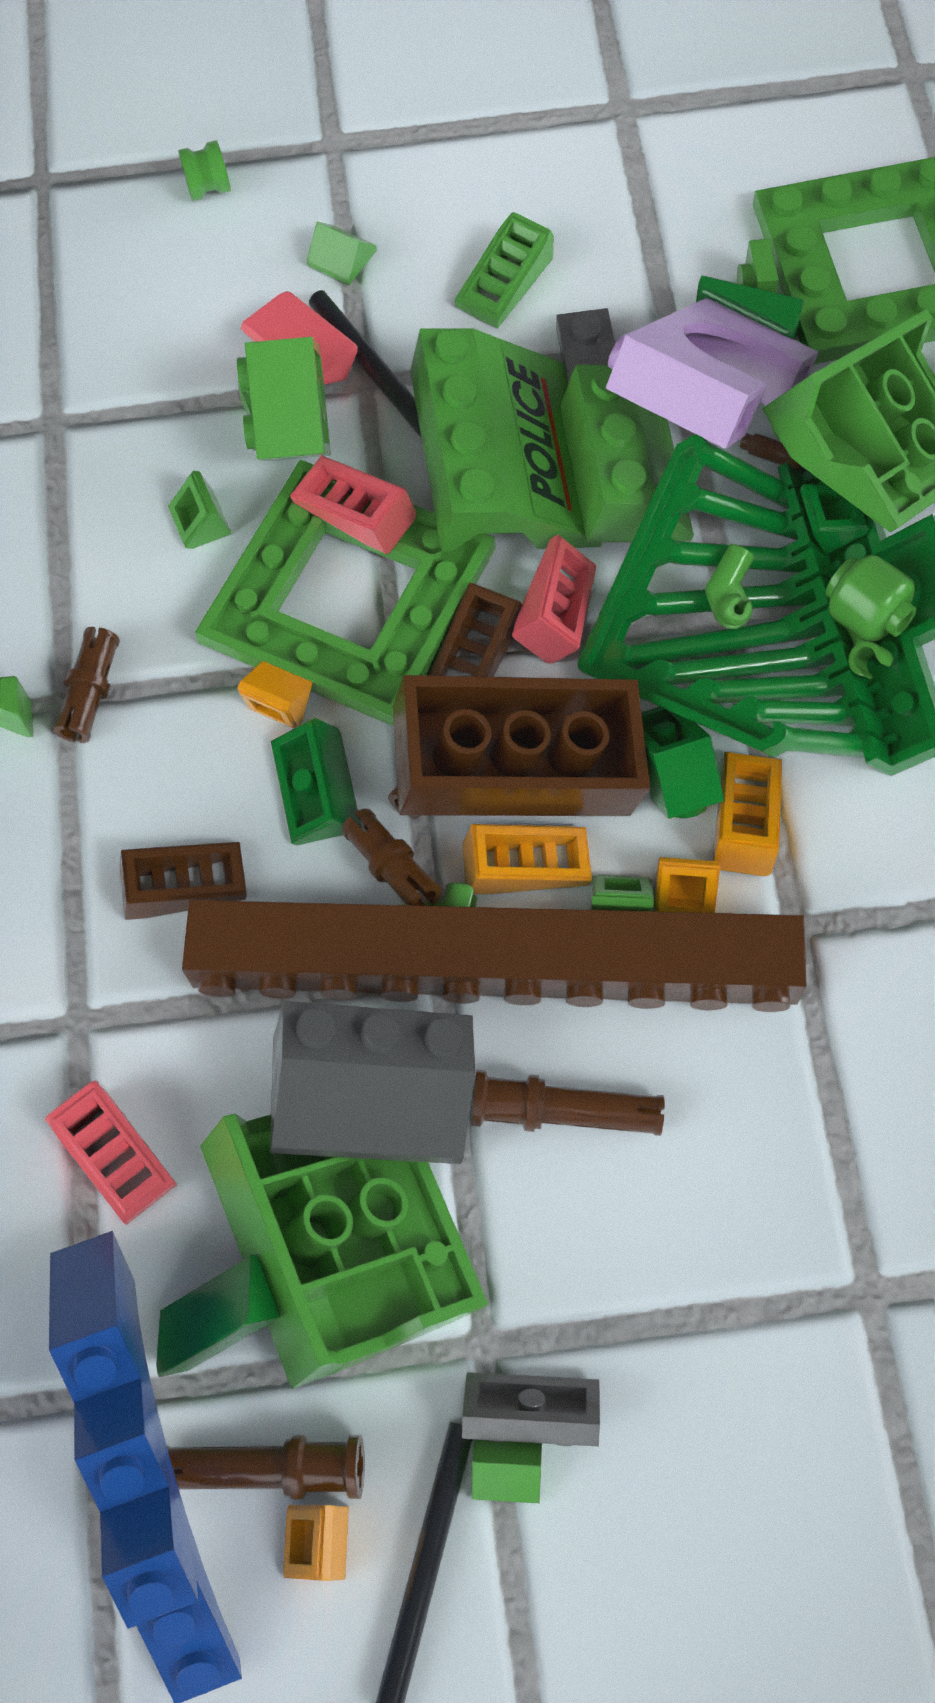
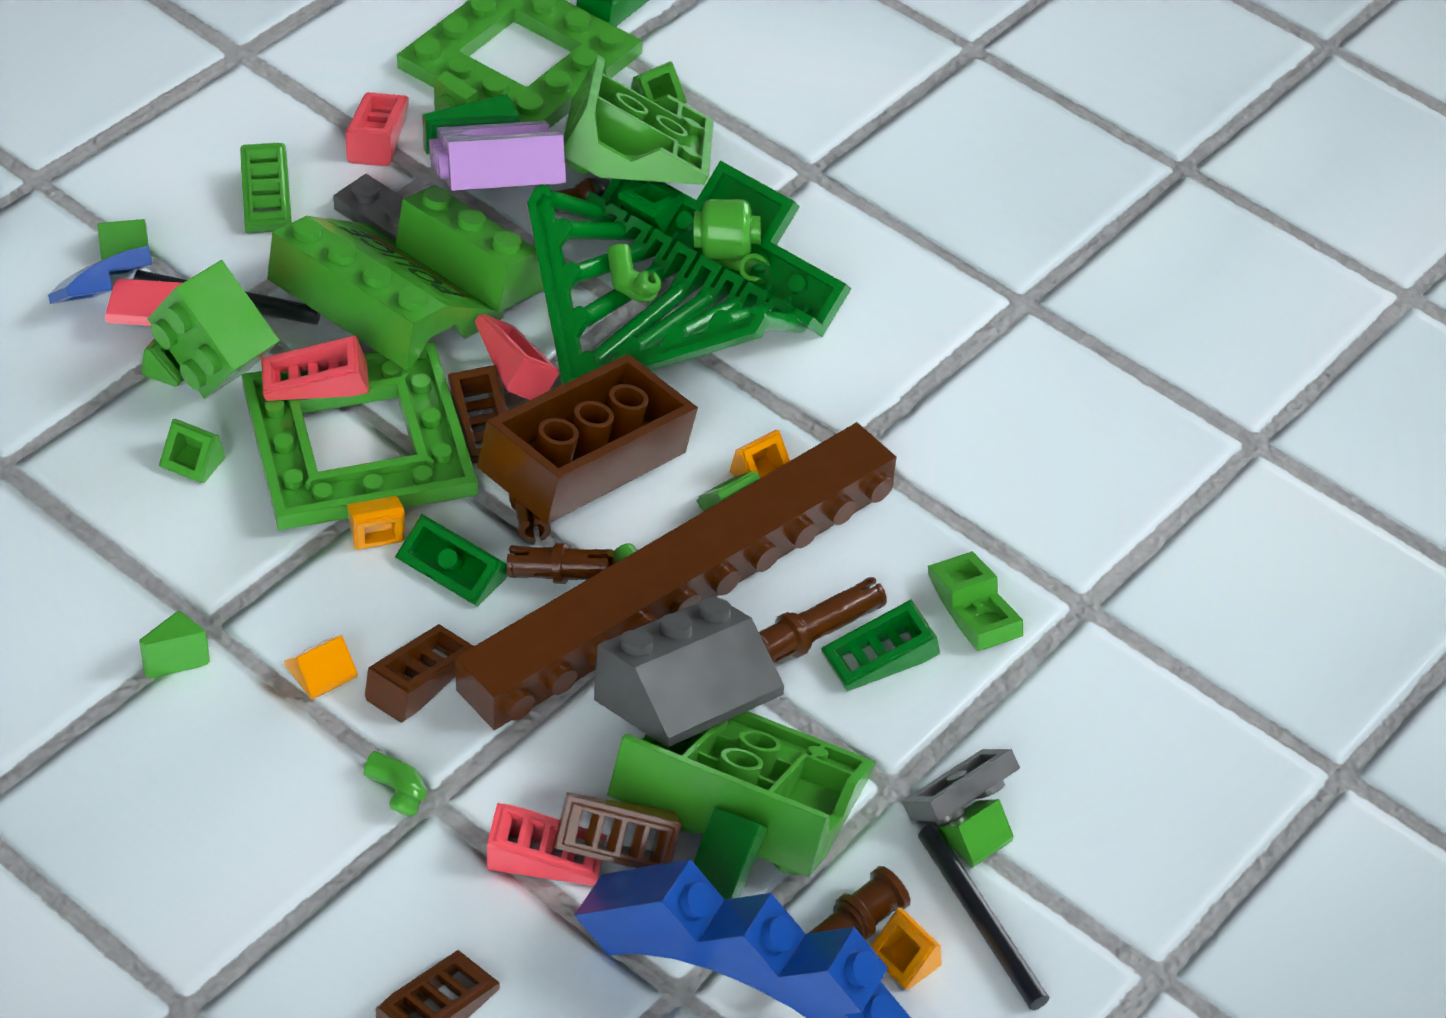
camera: 50 degrees left, 20 degrees down
(61, 986) = (399, 776): none -> bright green arm
(86, 685) = (222, 601): reddish brown pin -> none
(105, 811) = (322, 667): none -> light orange slope
(165, 1201) = (644, 817): none -> reddish brown slope
(261, 277) = (96, 278): none -> blue slope
(526, 877) = (641, 516): light orange slope -> none
(662, 1198) = (887, 626): none -> green slope
(664, 264) = (376, 129): none -> coral slope
(680, 764) = (707, 388): green slope -> none
(745, 847) = (763, 405): light orange slope -> none
(754, 1203) = (973, 601): none -> bright green slope

